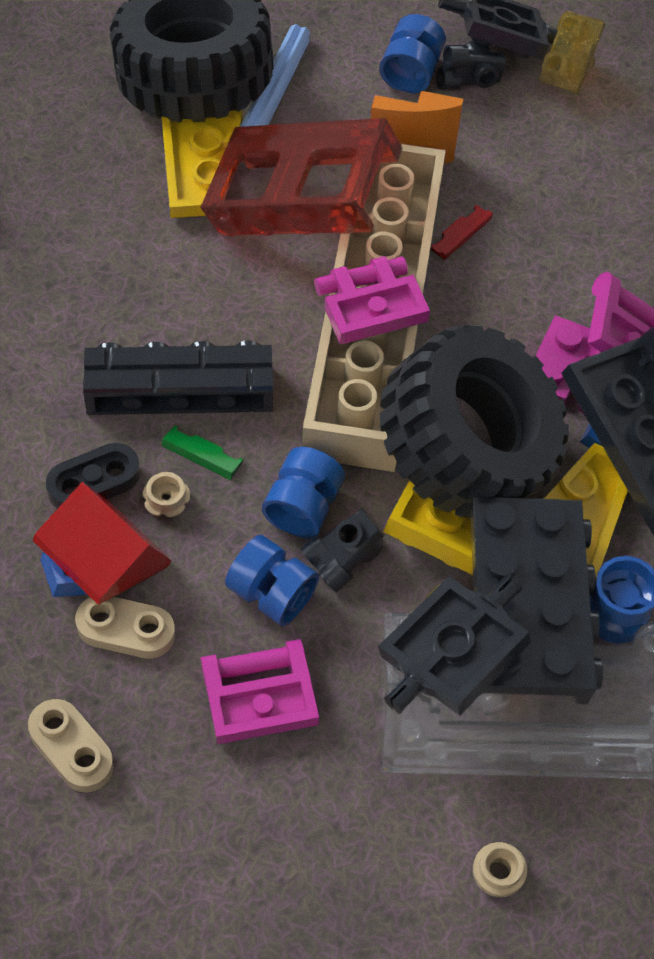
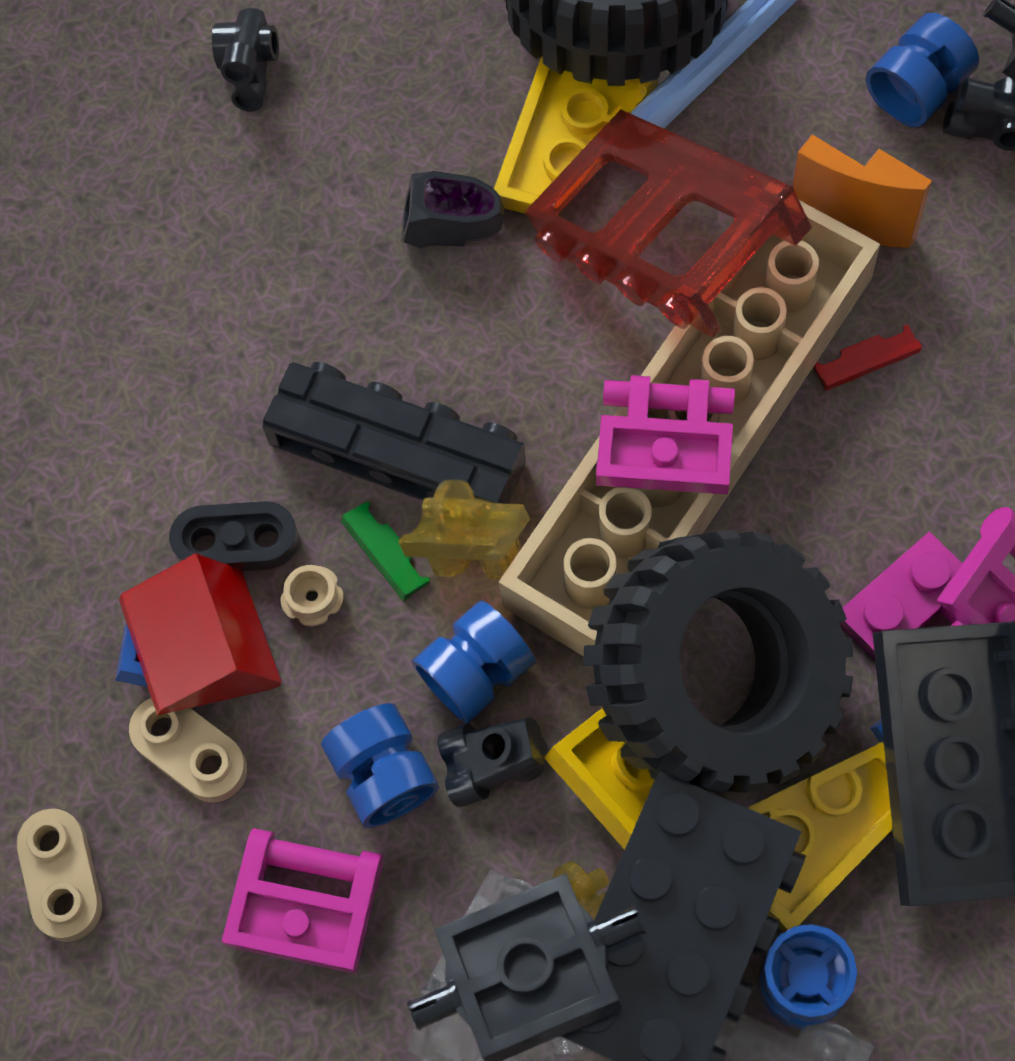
camera: 35 degrees right, 10 degrees up
(144, 226) = (449, 210): none -> black rock
(259, 406) = (465, 529): none -> clear yellow hips

